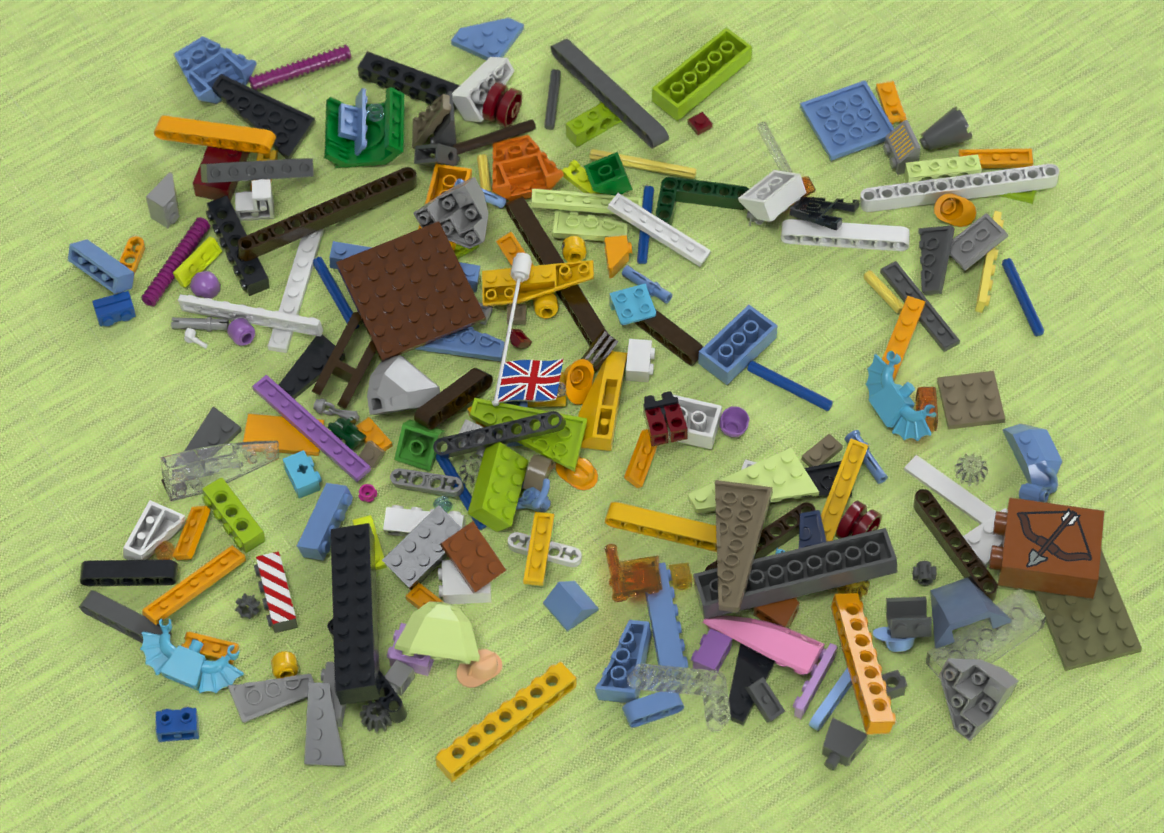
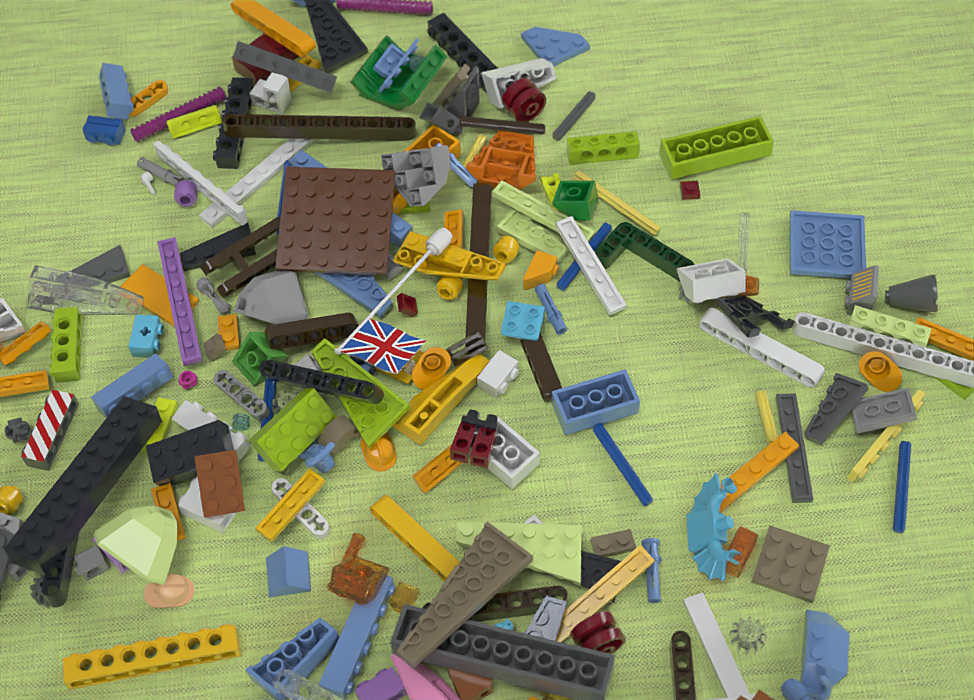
camera: 30 degrees right, 0 degrees up
(163, 202) = (202, 61): light grey slope -> none
(205, 284) = (188, 143): medium lavender hair -> none
(348, 431) = (206, 318): dark green hips -> none
(519, 315) = (419, 283): dark tan plate -> none
(609, 93) = (619, 129): dark grey beam -> none
(734, 421) = (546, 473): medium lavender hair -> none
(890, 102) = (878, 246): light orange plate -> none

